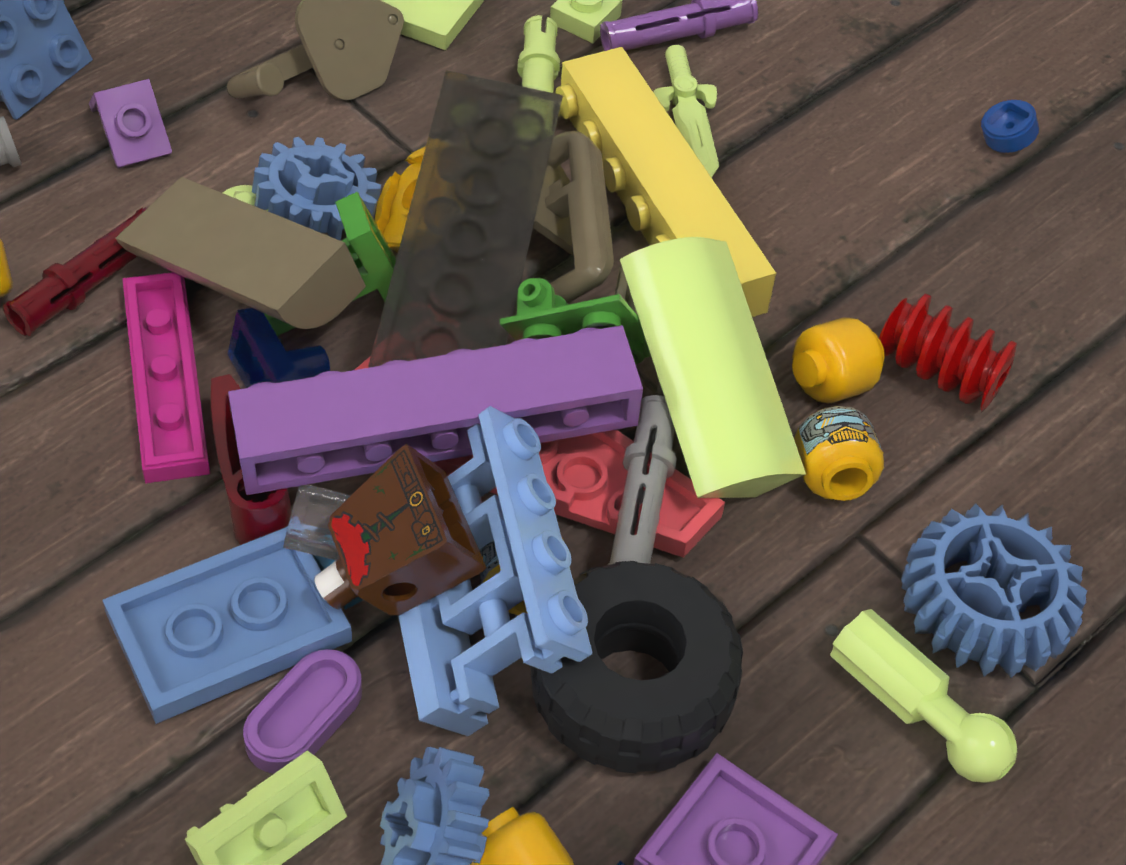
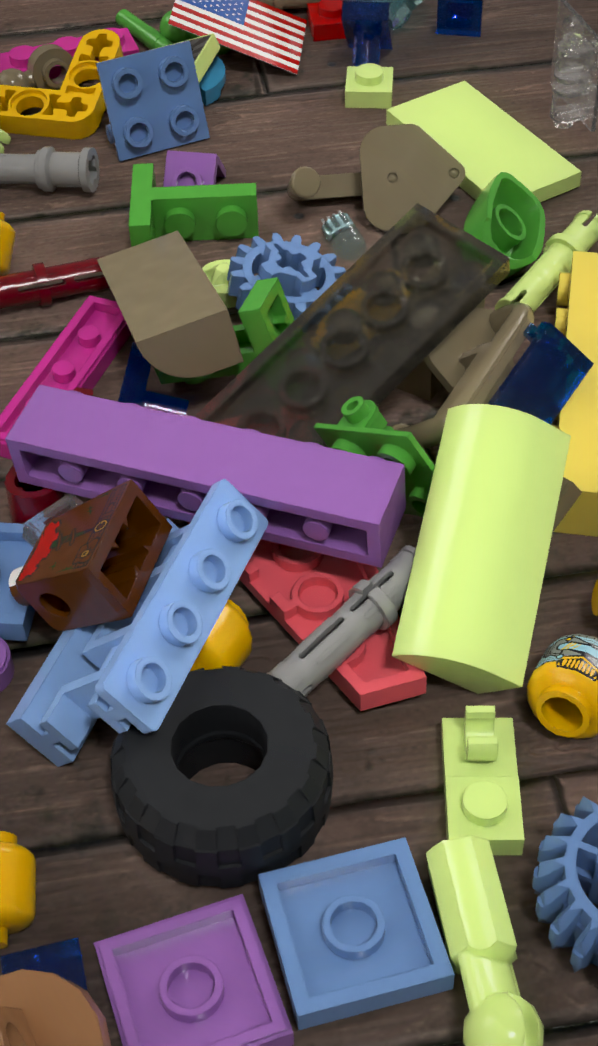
camera: 40 degrees right, 5 degrees down
(150, 154) = (194, 211): none -> bright green bracket
(320, 120) = (344, 236): none -> clear light blue piece
(472, 47) = (508, 220): none -> bright green piece
(637, 200) = (544, 374): none -> clear blue hinge
(817, 568) = (482, 780): none -> yellowish green plate
(821, 734) = (354, 933): none -> medium blue plate

